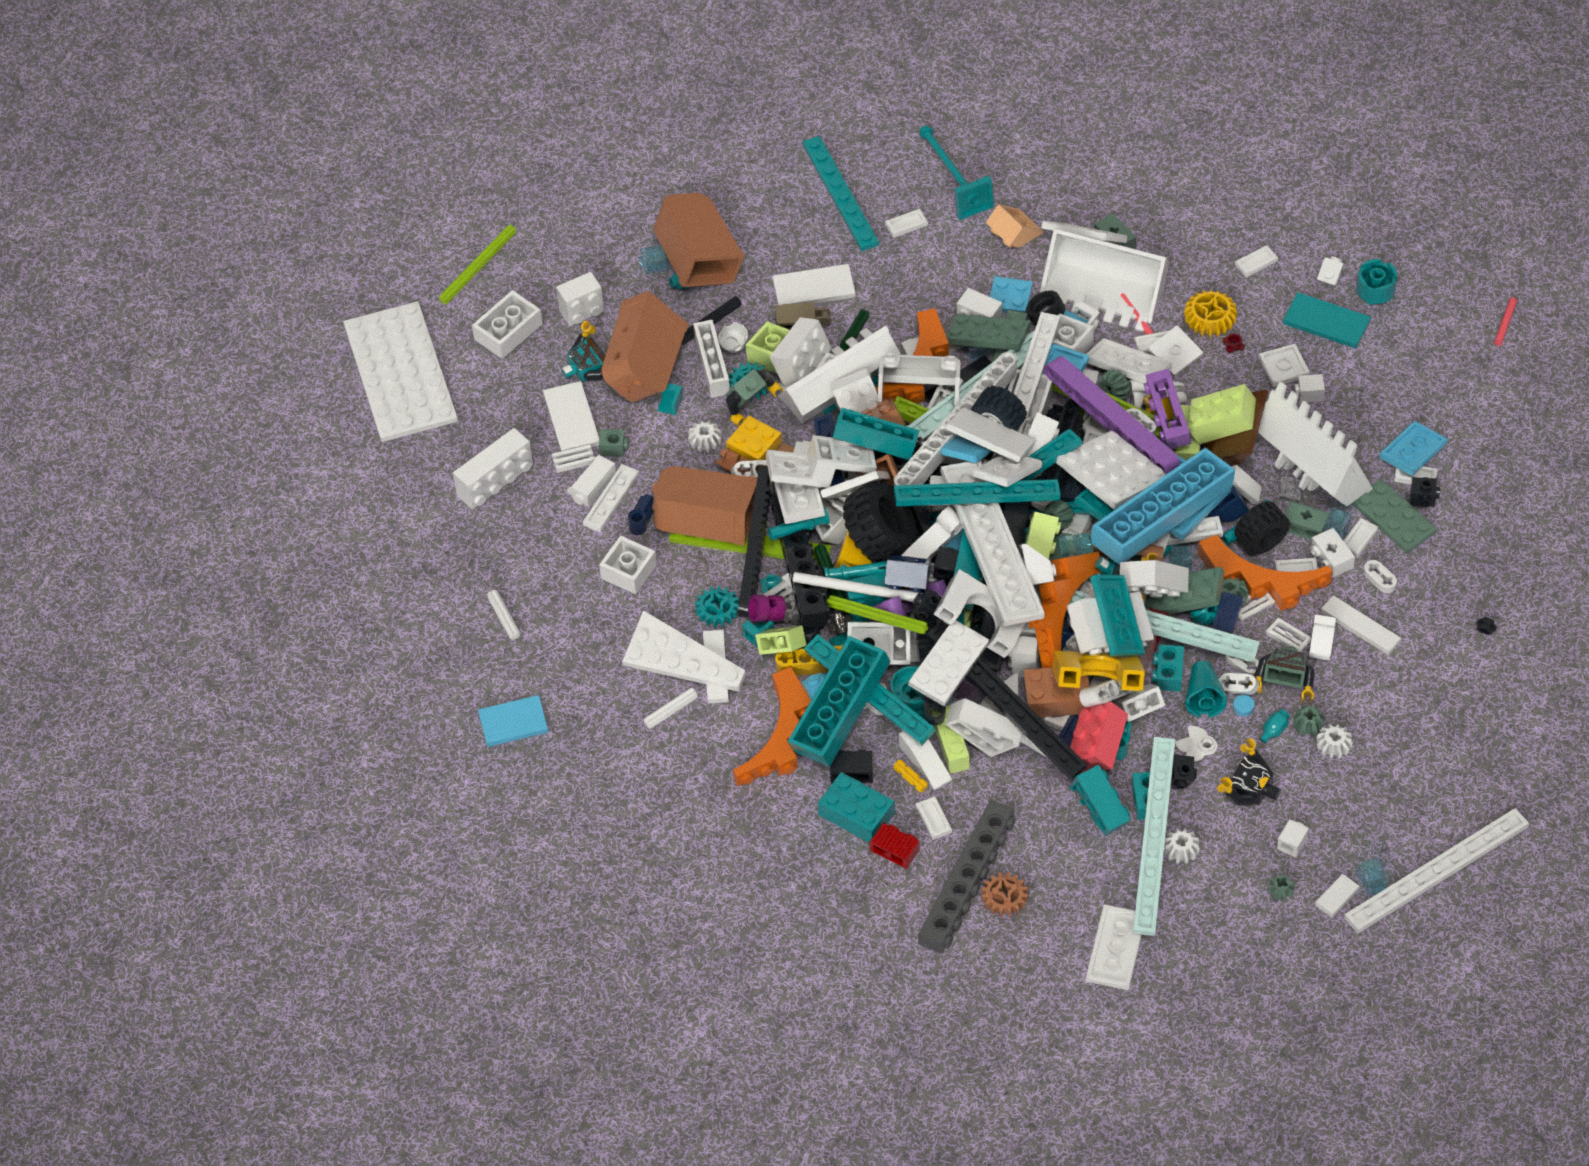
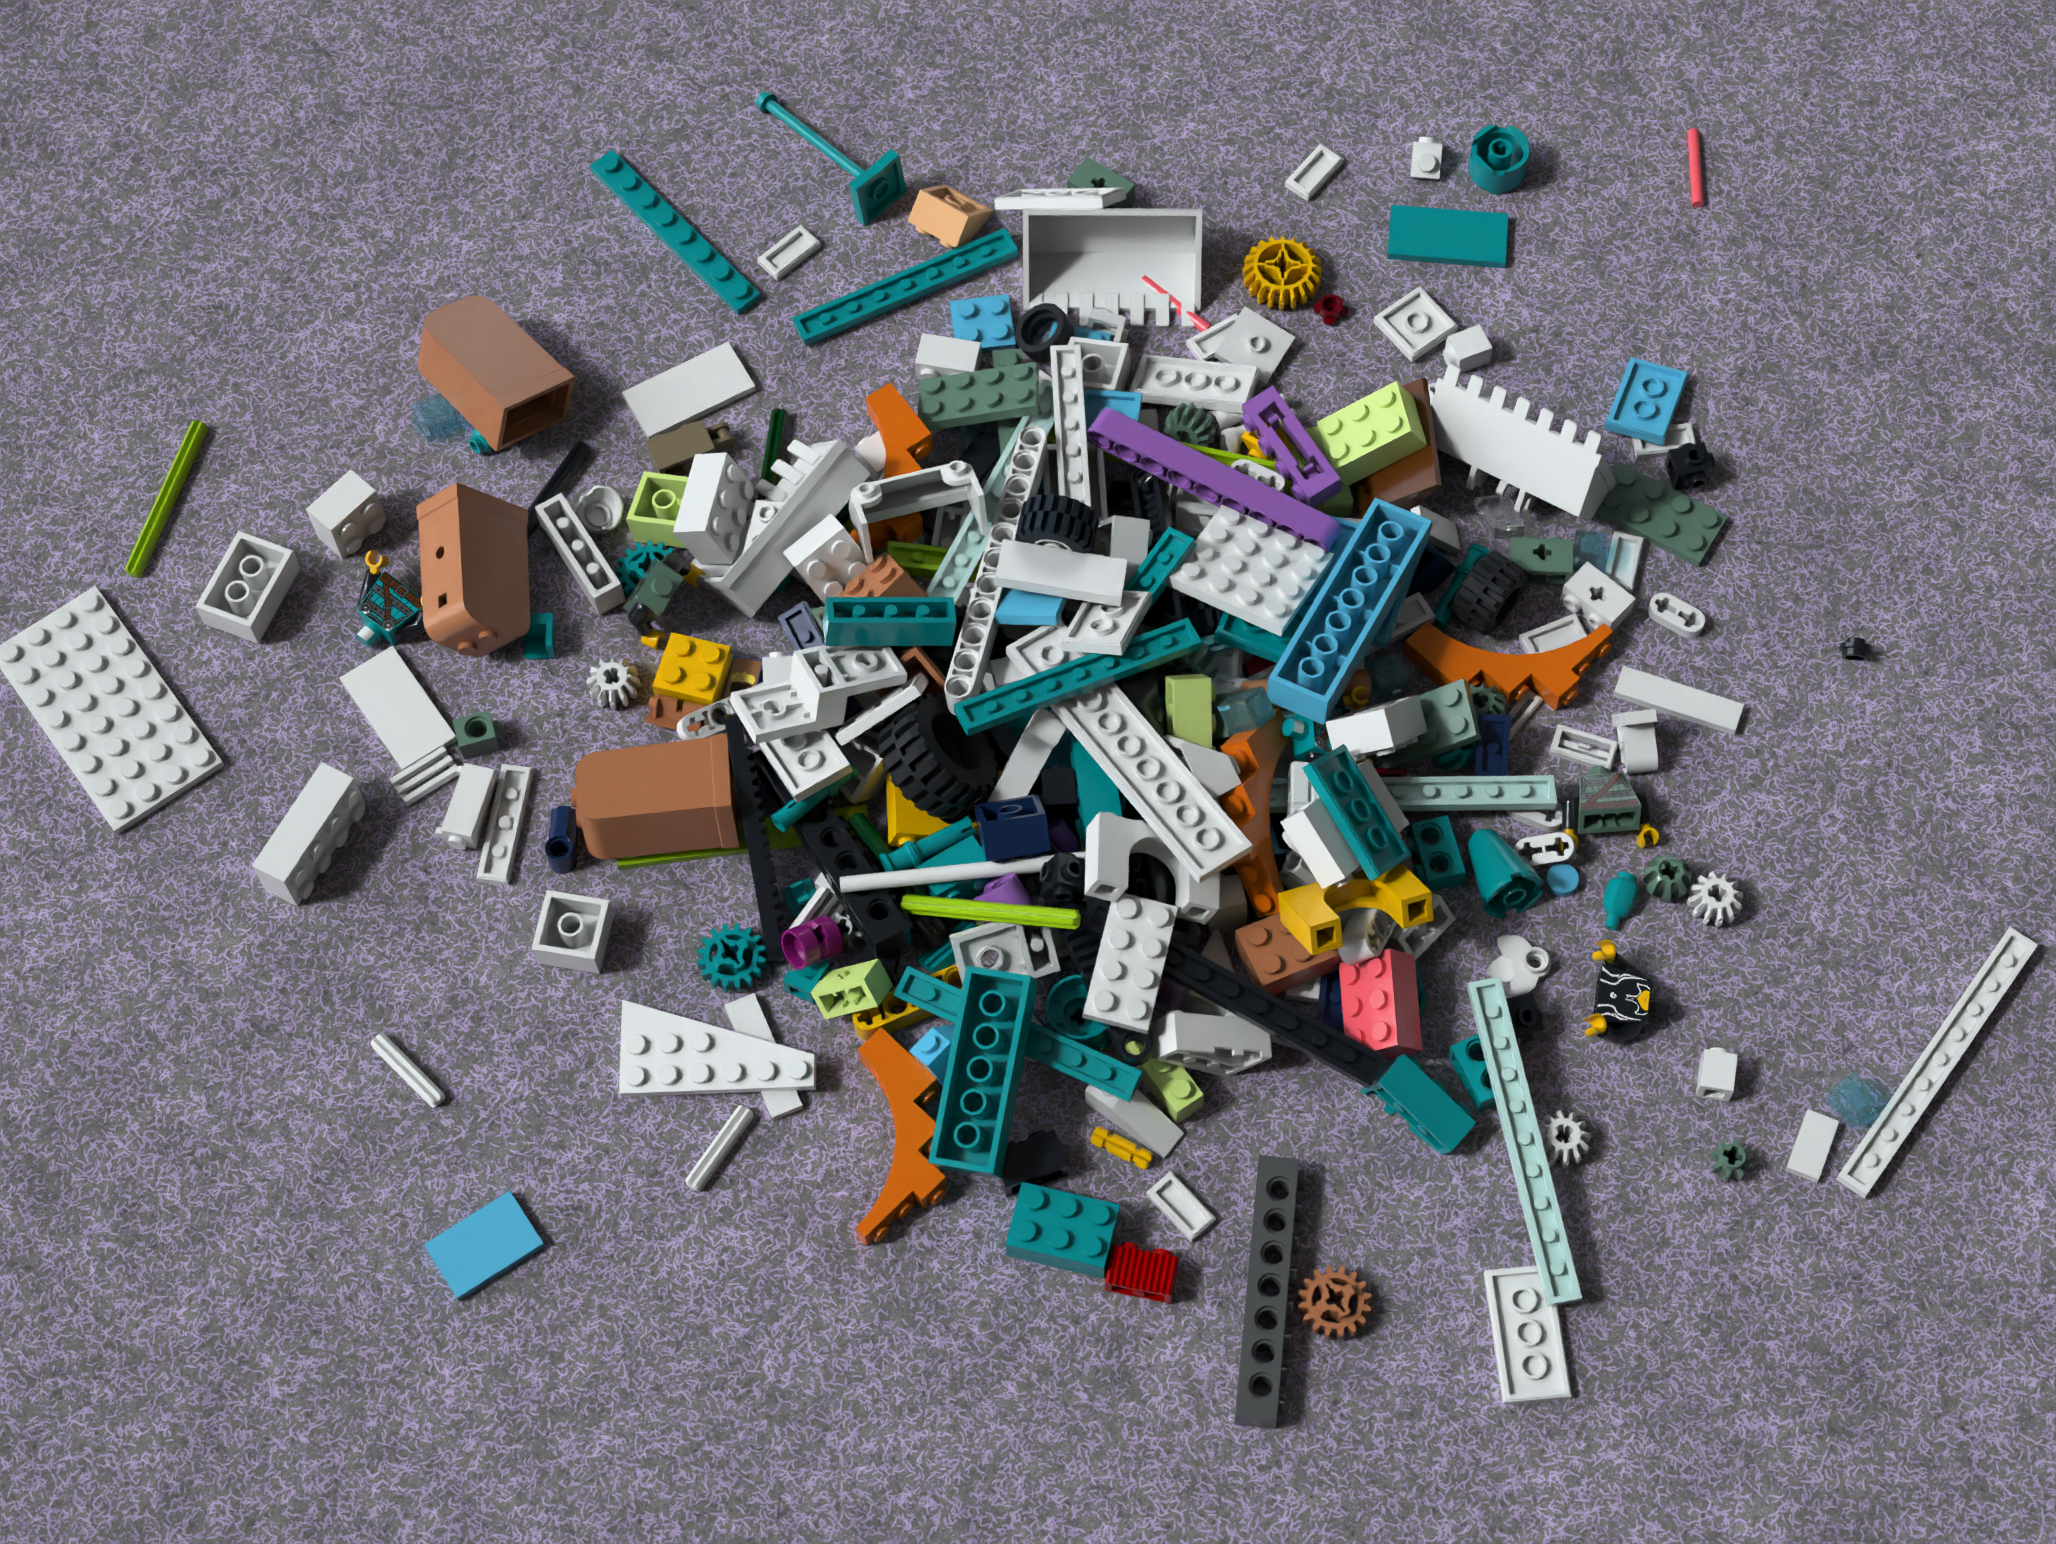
camera: 20 degrees left, 10 degrees up
(970, 260) = (905, 287): none -> teal plate

